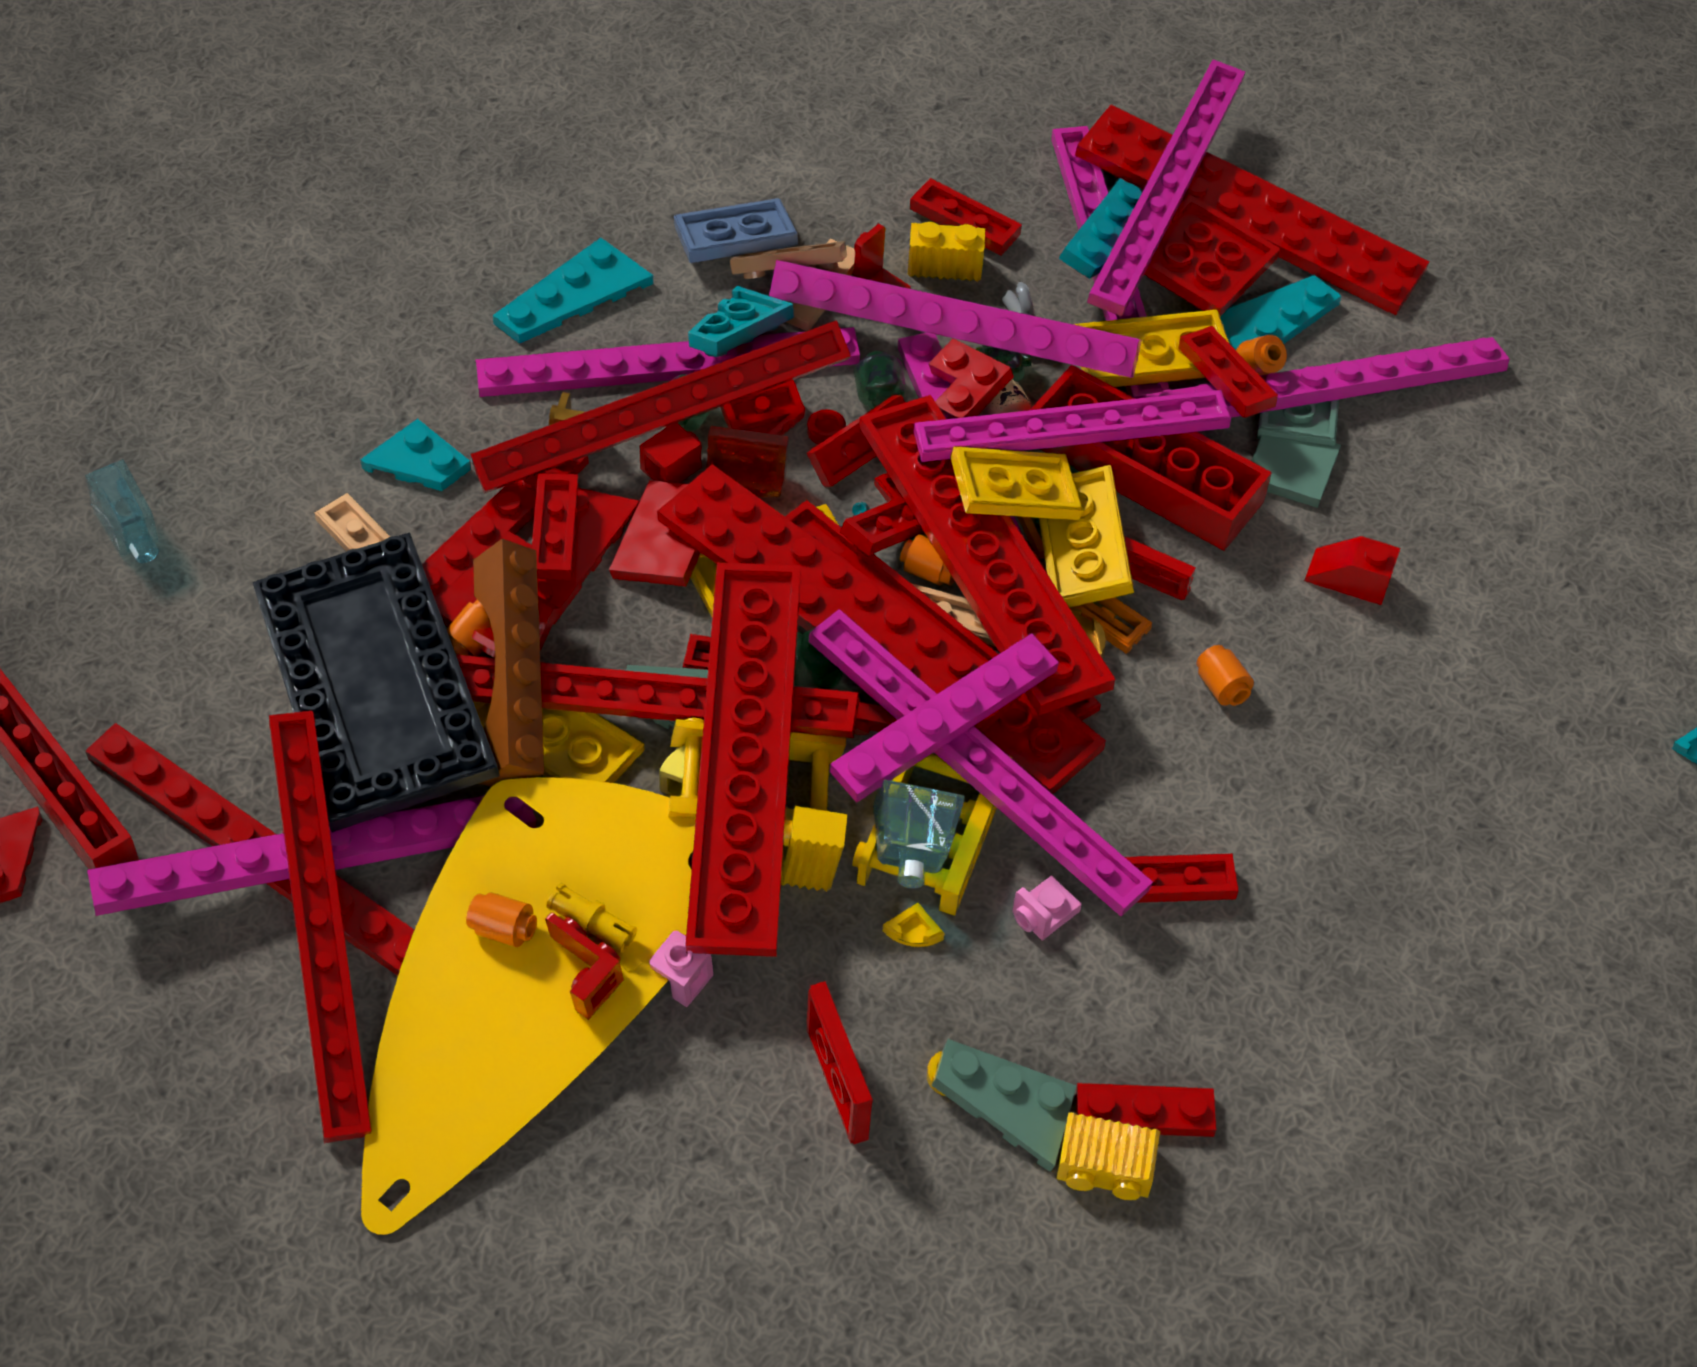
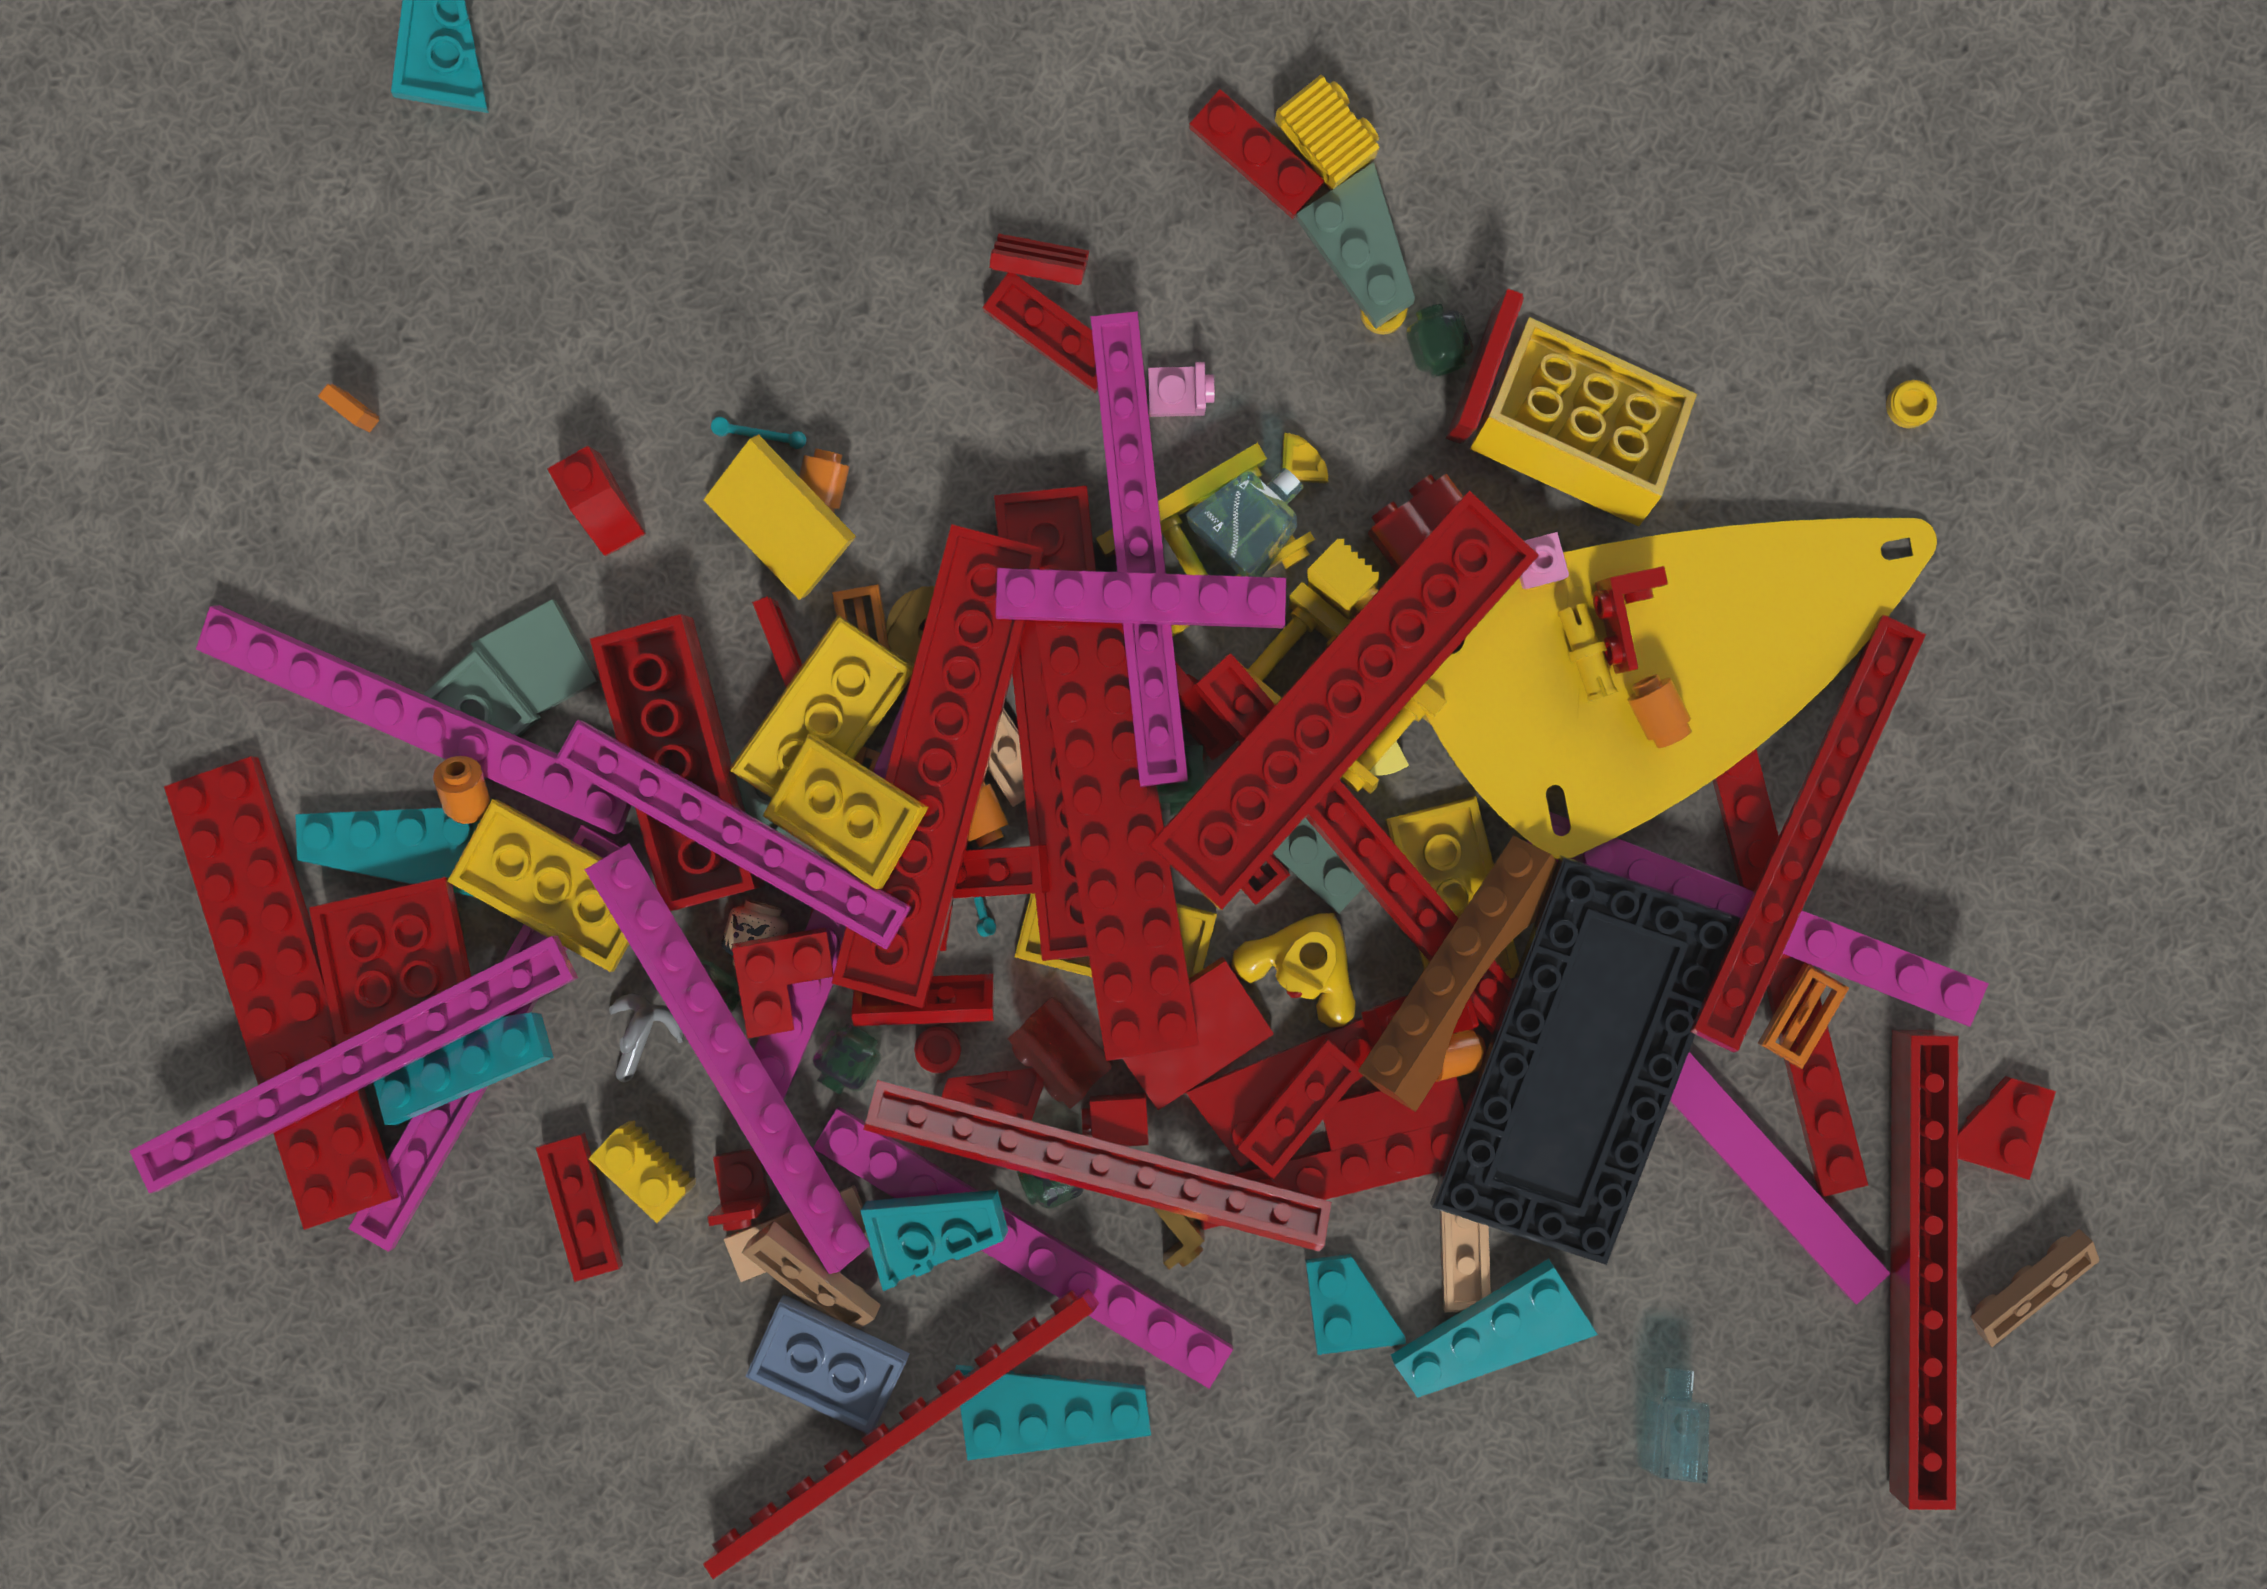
camera: 145 degrees left, 35 degrees up
(153, 712) = (1776, 1182): none -> dark pink tile
(222, 780) = (1787, 1006): none -> orange tile
(298, 506) = (1500, 1330): none -> teal wing
(468, 1315) = (1911, 403): none -> yellow tile
(625, 618) = (1308, 963): none -> yellow head
(655, 228) = (883, 1442): none -> red plate
(728, 1102) = (1585, 422): none -> yellow slope
(799, 929) = (1405, 527): none -> red brick
(890, 1071) = (1439, 340): none -> clear green head
(1226, 922) = (1039, 259): none -> red tile
(1228, 371) = (521, 783): red plate -> none
(1230, 632) = (779, 517): none -> yellow tile
(1323, 672) = (722, 427): none -> teal hinge
(1554, 514) = (349, 407): none -> orange tile

